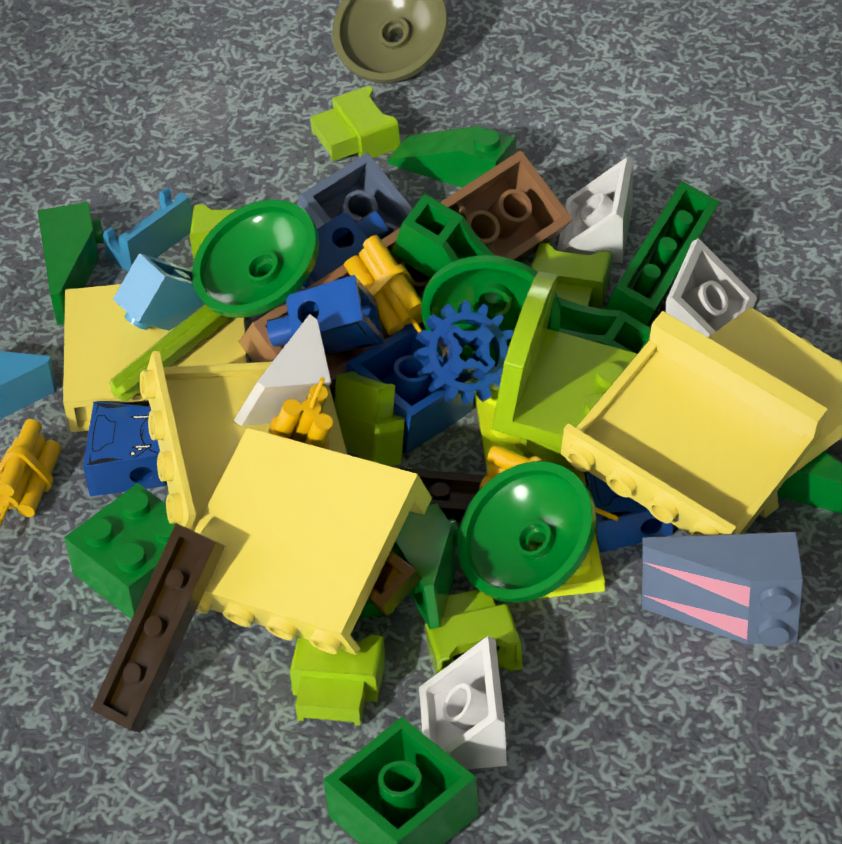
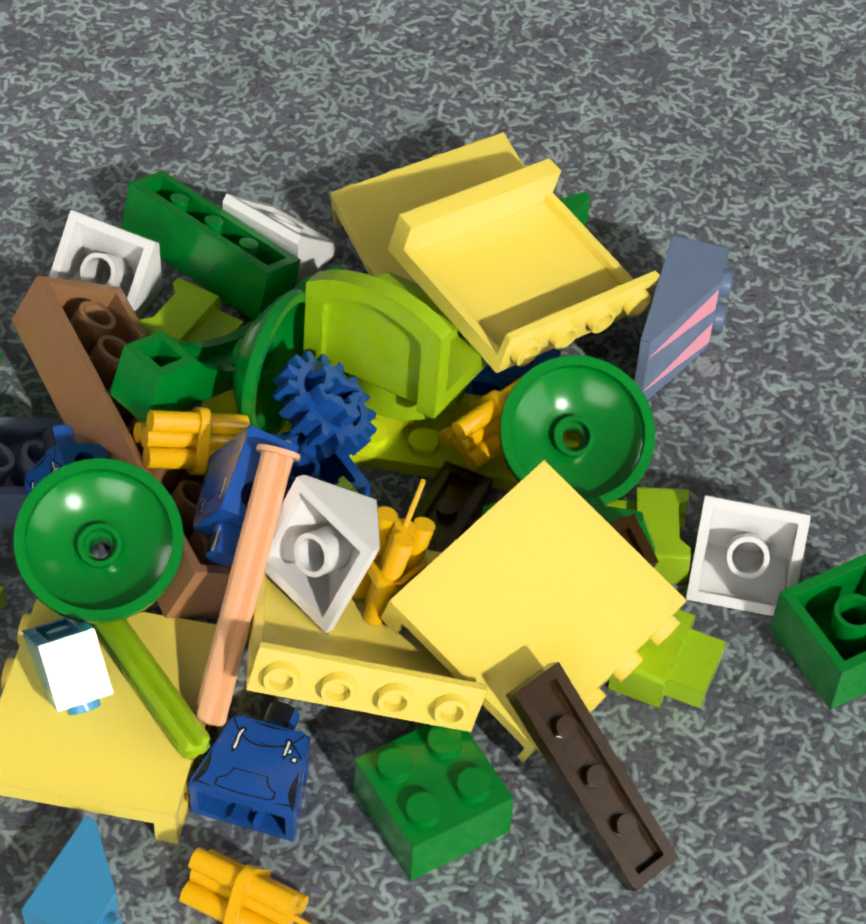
camera: 80 degrees left, 5 degrees up
(271, 329) = (244, 584): none -> light nougat axle

